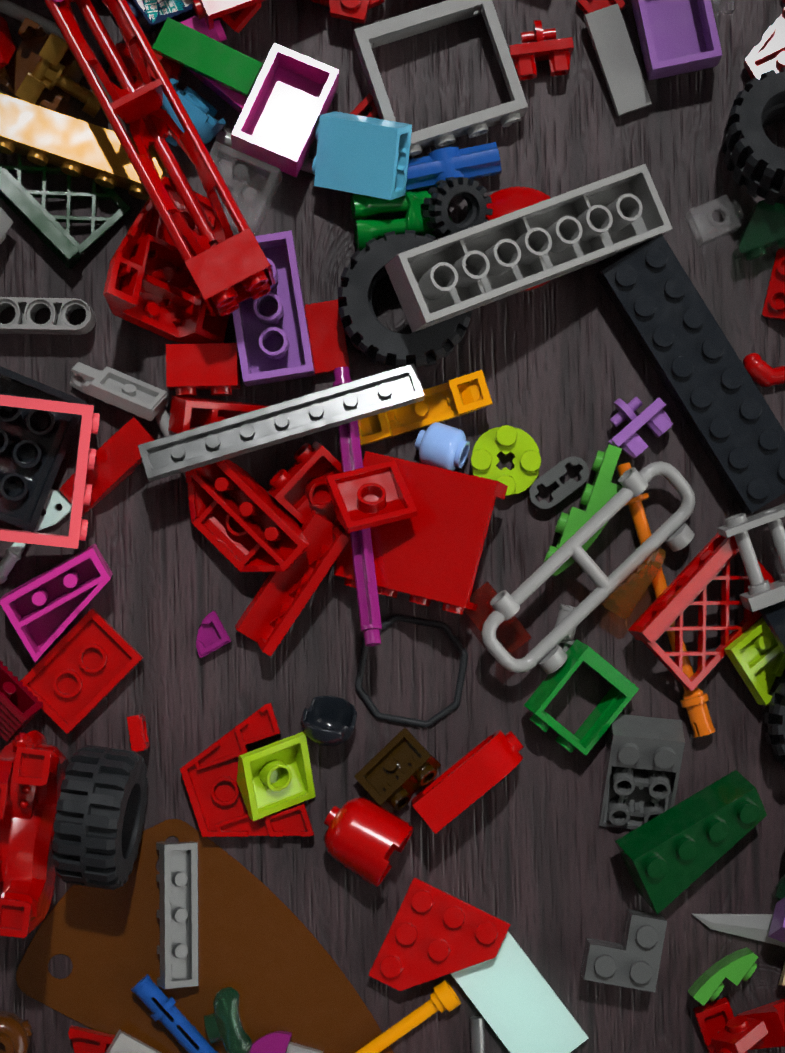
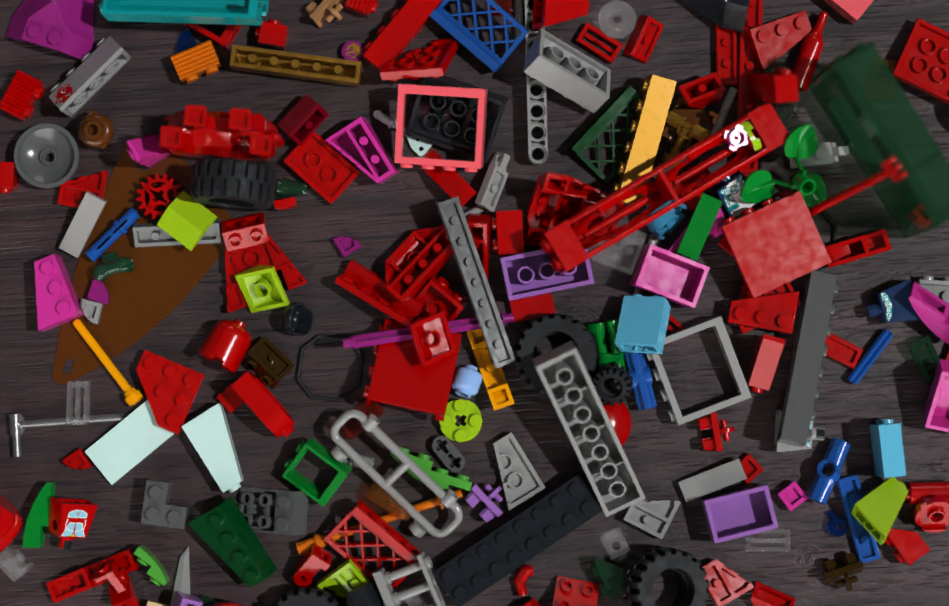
camera: 85 degrees right, 0 degrees up
(37, 958) = (147, 150): none -> dark pink slope
(106, 931) = (165, 189): none -> red gear
(113, 725) = (289, 188): none -> clear green cone
(157, 897) = (186, 220): none -> lime slope
(181, 801) = (245, 231): none -> red bracket
(455, 836) = (230, 399): none -> red tile
(530, 864) = (215, 445): none -> light aqua slope
(591, 374) = (516, 471): none -> light grey wing
(671, 157) = (652, 515): none -> light grey wing
(731, 714) = (311, 564): none -> red leg

